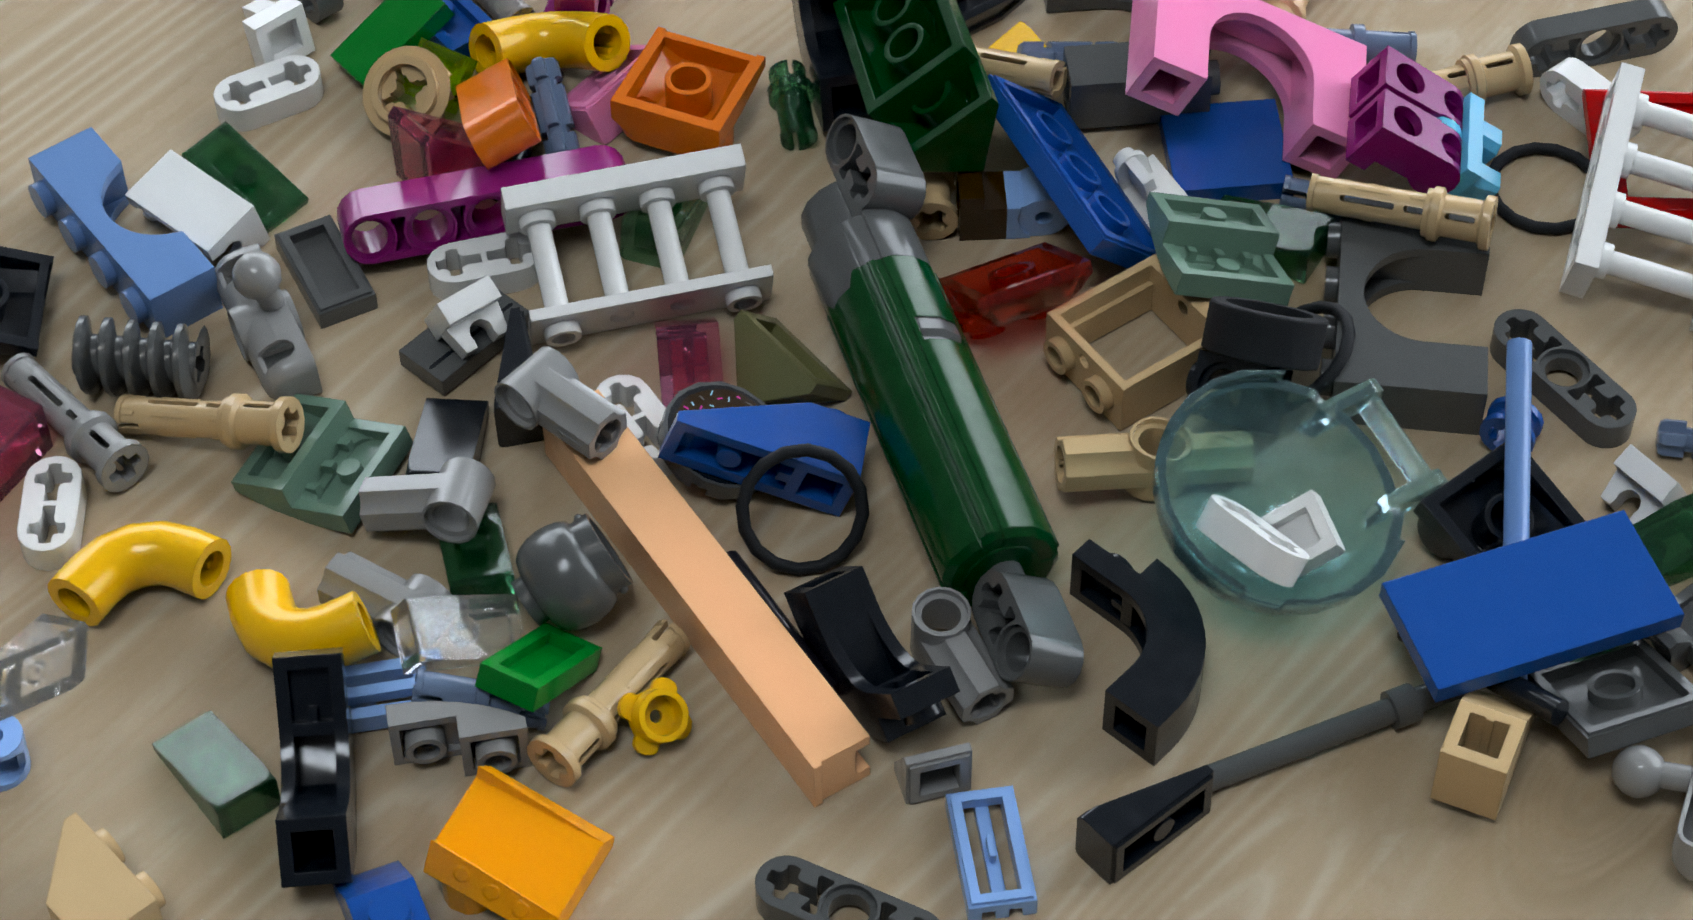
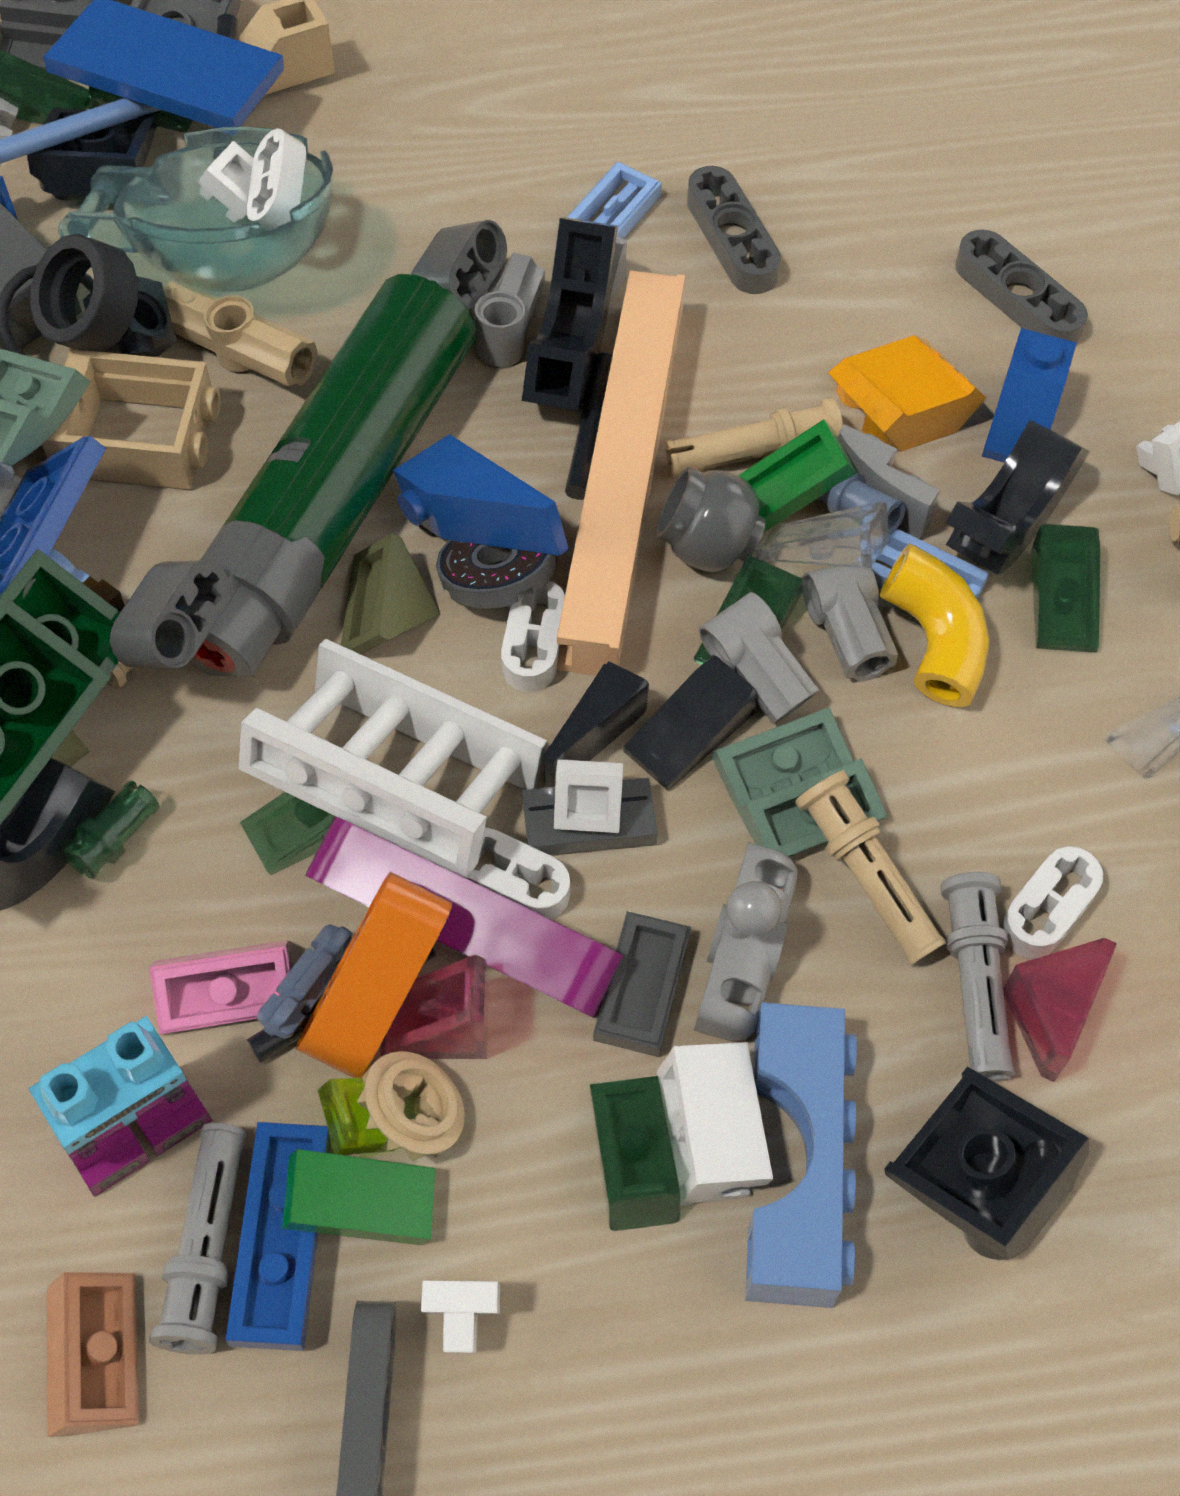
camera: 140 degrees left, 10 degrees up
(135, 559) = (1017, 791): yellow cylinder -> none
(139, 362) = (885, 980): dark grey piece -> none
(268, 92) = (528, 1229): white beam -> none
(549, 394) = (611, 625): light grey piece -> none
(571, 37) = (229, 1068): yellow cylinder -> none
(673, 712) = (735, 407): yellow plate -> none
(685, 93) = (185, 890): orange slope -> none
(687, 354) = (448, 648): clear pink slope -> none
(770, 461) = (477, 439): black piece -> none
(1014, 288) = (170, 486): clear red slope -> none
(1137, 825) = (509, 148): black slope -> none
(1161, 691) = (386, 216): black arch -> none
(1396, 708) = (292, 120): dark grey bar -> none

